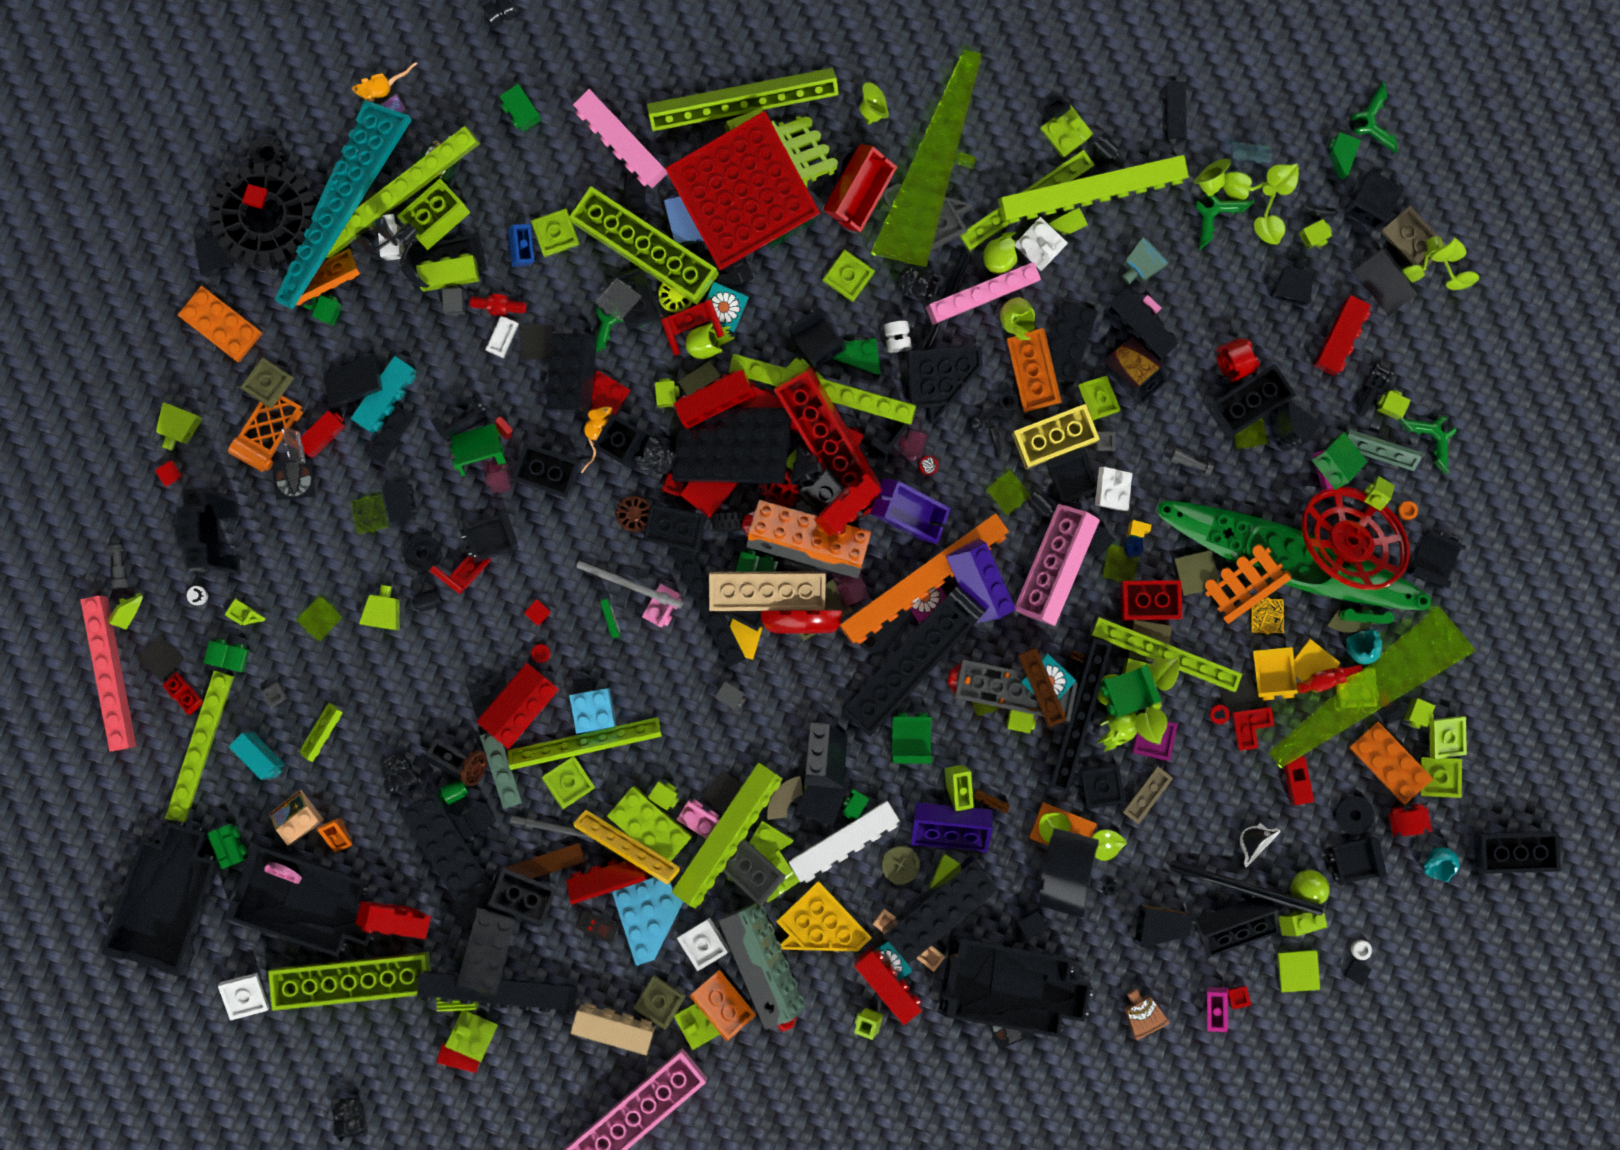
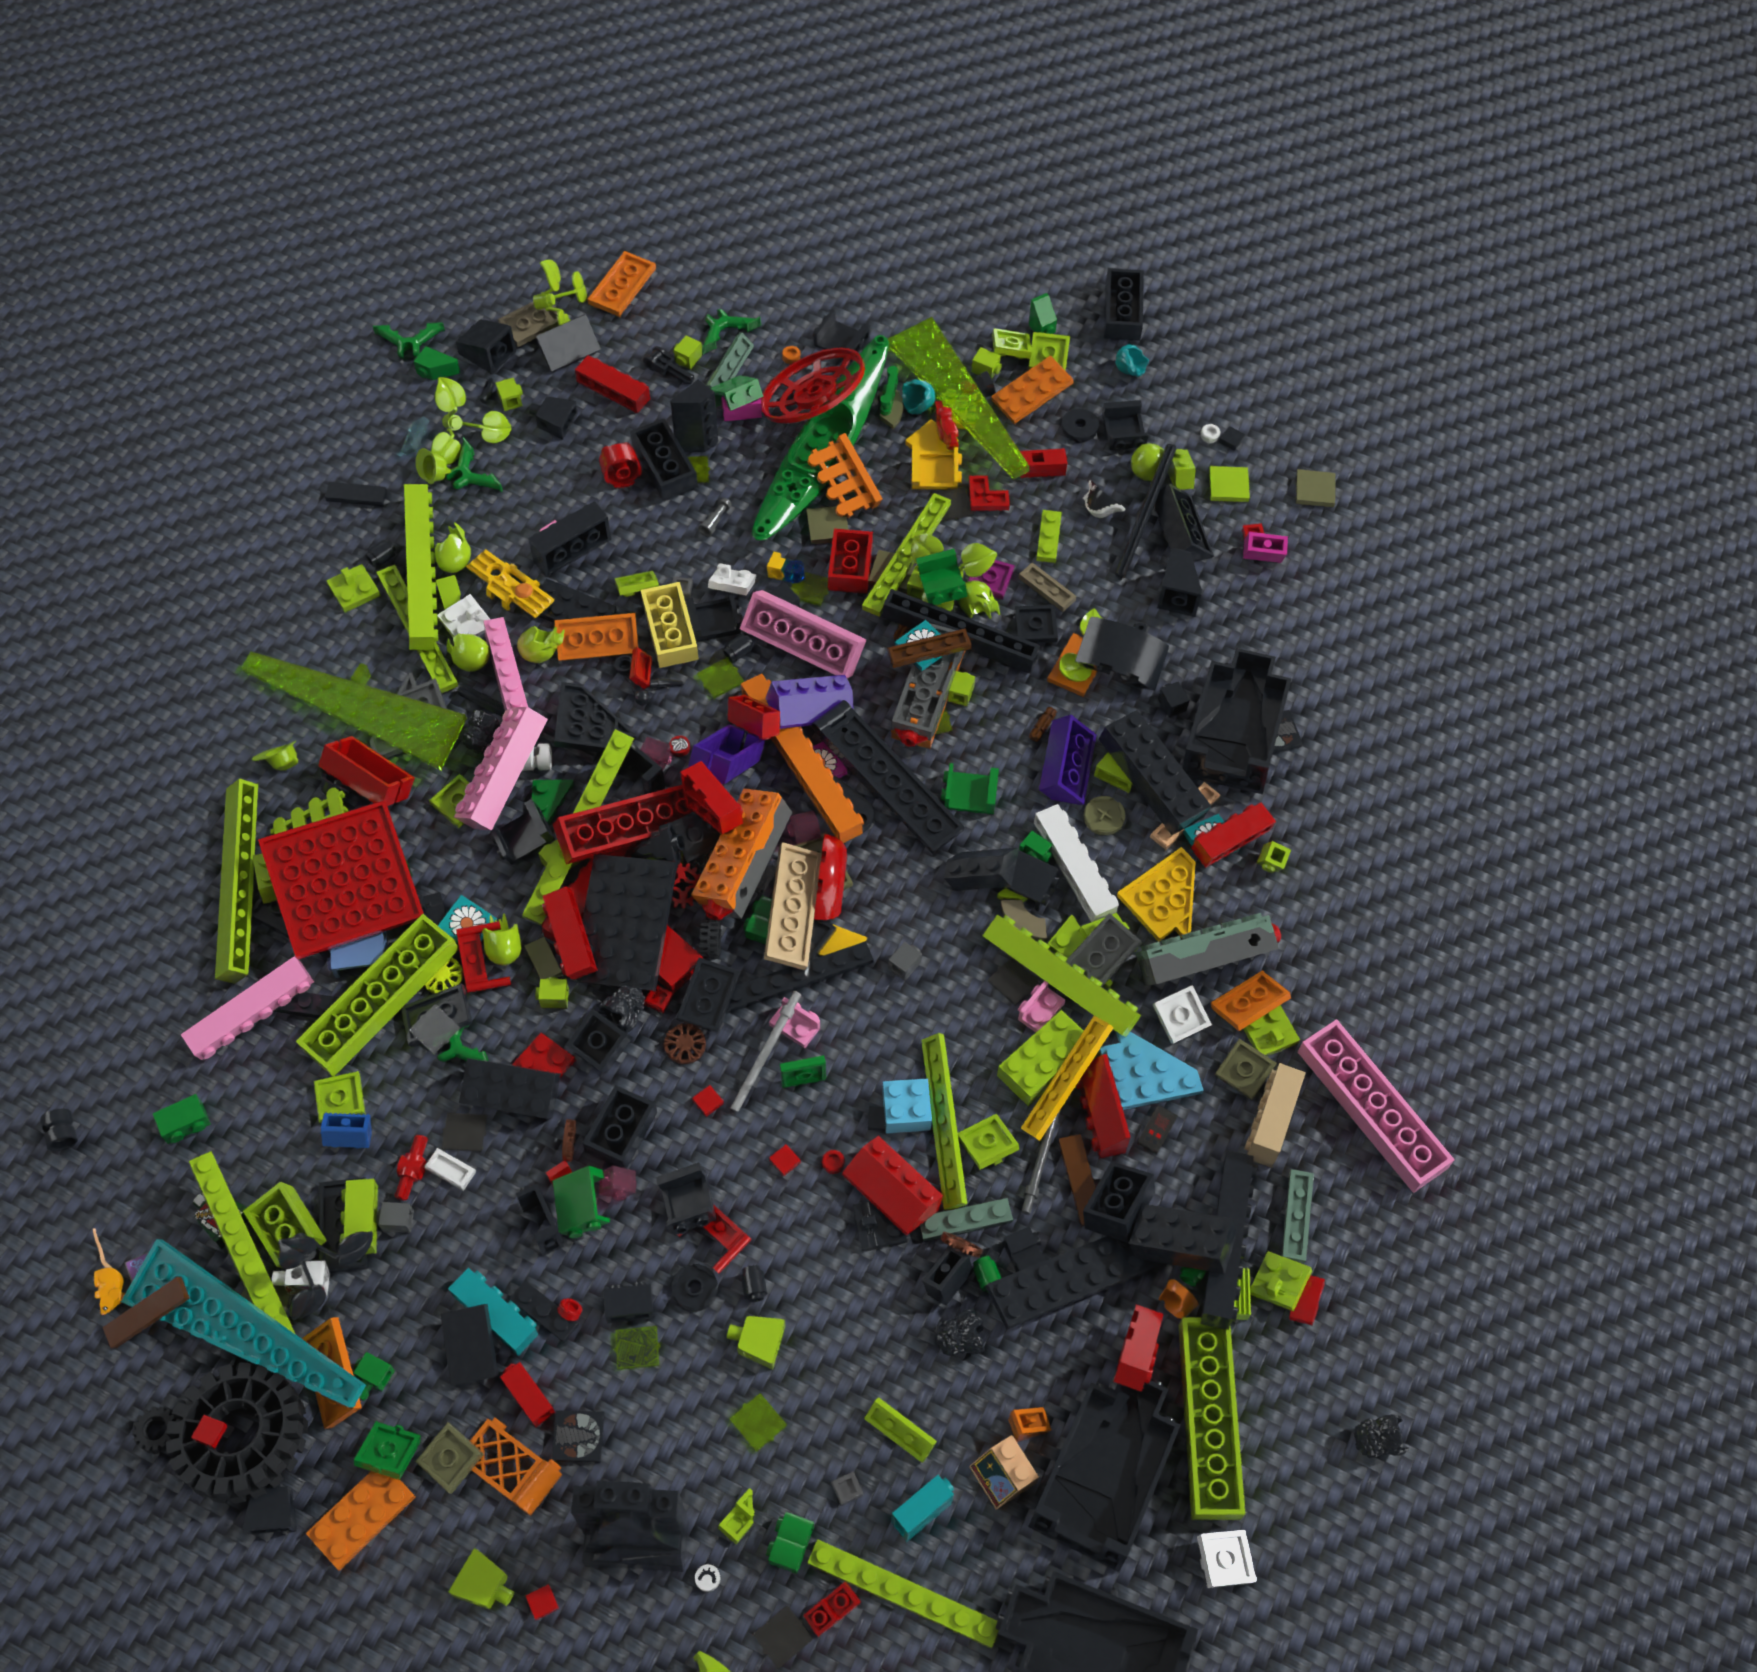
camera: 80 degrees left, 25 degrees down
(228, 845) = (1033, 1563): green brick -> none
(265, 334) = (387, 1450): none -> green plate
(282, 872) = (1070, 1494): bright pink tile -> none
(293, 445) = (536, 1423): clear piece -> none
(352, 122) = (146, 1312): none -> reddish brown tile
(391, 455) = (569, 1309): none -> red tile
(446, 951) = (1178, 1299): none -> orange hair
(530, 430) = (569, 1140): none -> copper wheel
(530, 1049) = (1297, 1215): none -> sand green plate
(583, 540) = (708, 1100): none -> red tile
(594, 426) = (577, 1069): light orange animal -> none
(664, 795) = (1010, 1039): lime brick -> none
(871, 308) = (500, 768): none -> bright pink brick
(957, 530) = (753, 716): none -> red brick
(959, 787) = (1025, 747): lime slope -> none
(1004, 417) = (640, 668): none -> red tile
(1057, 107) = (326, 591): black tile -> none
(1078, 276) = (525, 594): none -> yellow piece
(1109, 217) = (453, 552): none -> lime helmet
(1136, 370) = (613, 550): slope -> none
(1143, 262) = (504, 534): sand green torso -> none
(1143, 1015) = (1270, 612): nougat torso -> none
(1210, 792) = (1049, 536): none -> lime plate
(1219, 714) = (971, 521): red tile -> none
(1268, 616) = (881, 472): yellow piece -> none
(1304, 1059) = (1315, 488): none -> olive tile
(1379, 493) = (771, 369): lime brick -> none
(1410, 820) = (1088, 377): red brick -> none
(1477, 323) = (621, 283): none -> orange plate
(1485, 767) = (1042, 315): none -> green slope

